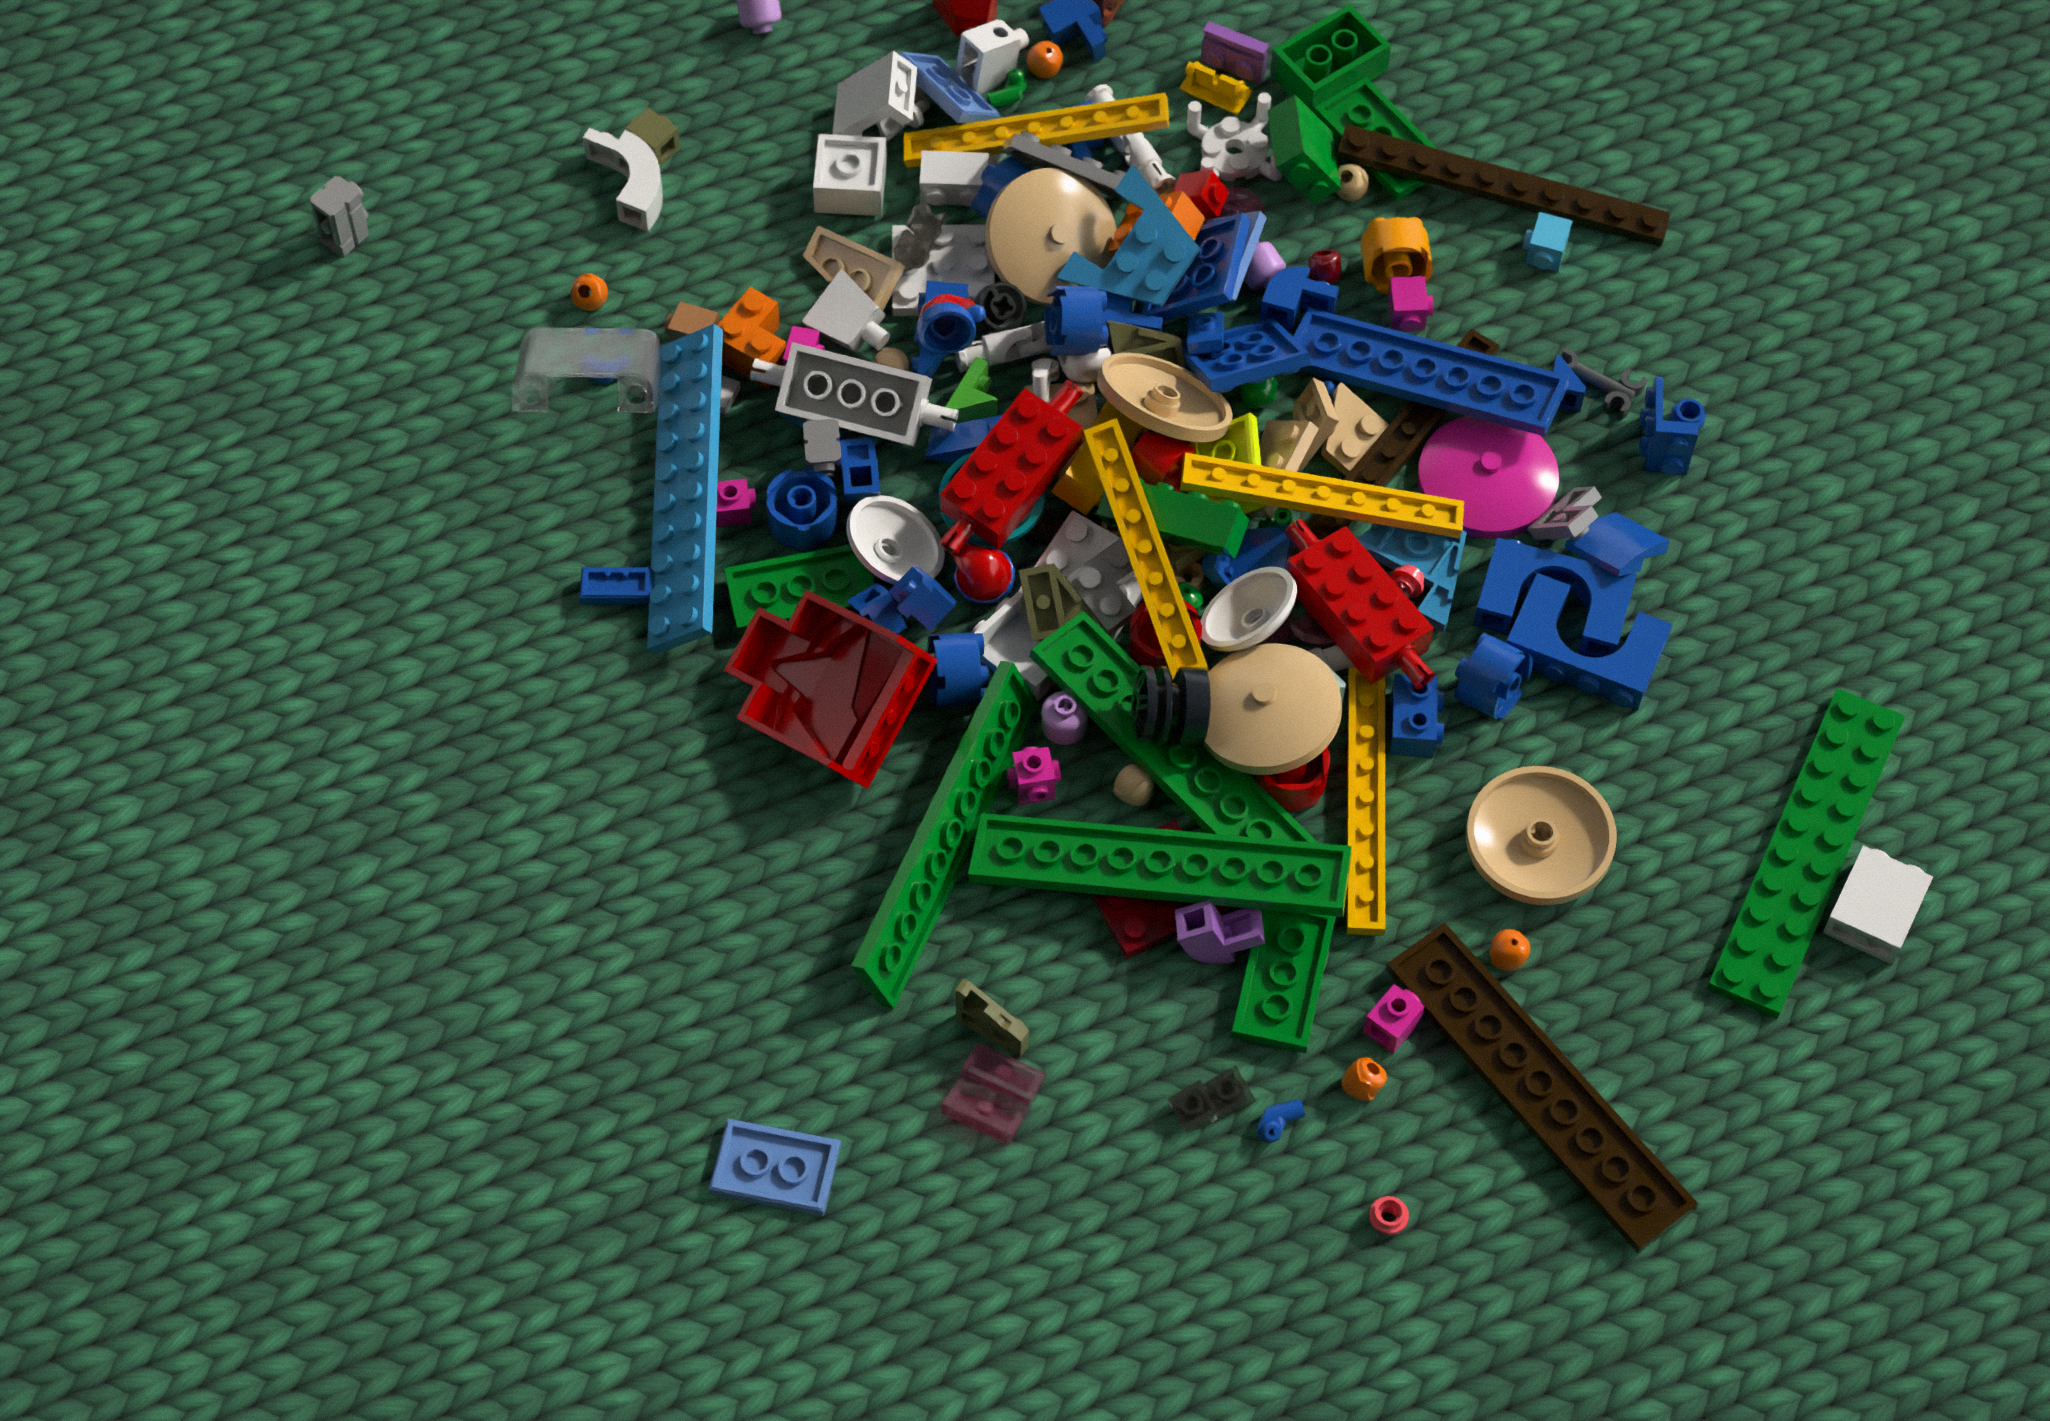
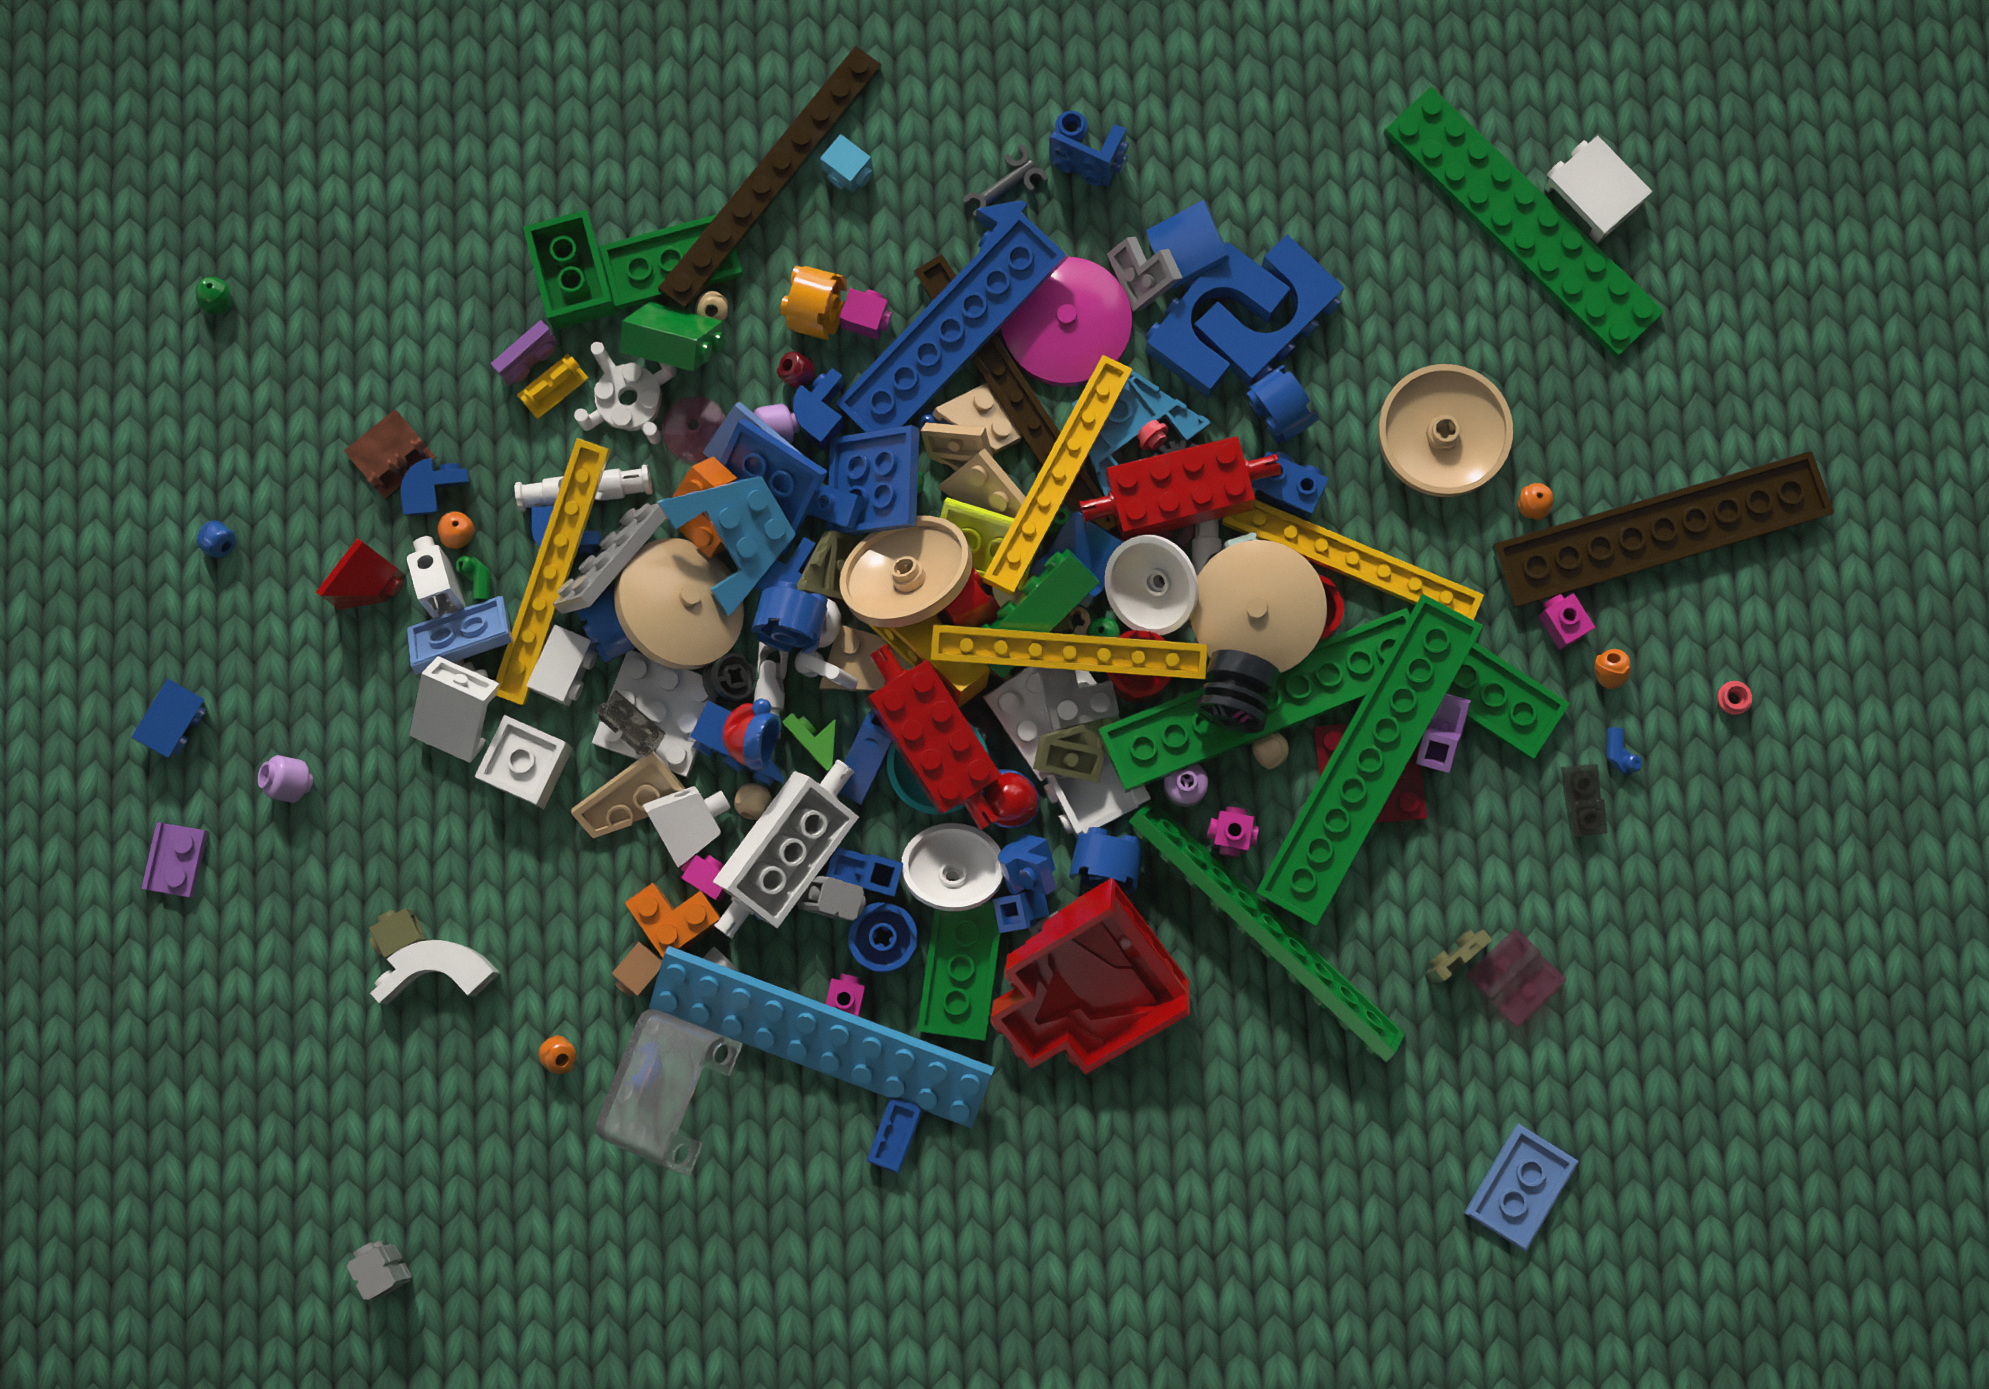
camera: 65 degrees left, 20 degrees up
(1204, 191) = (676, 450): red brick -> none

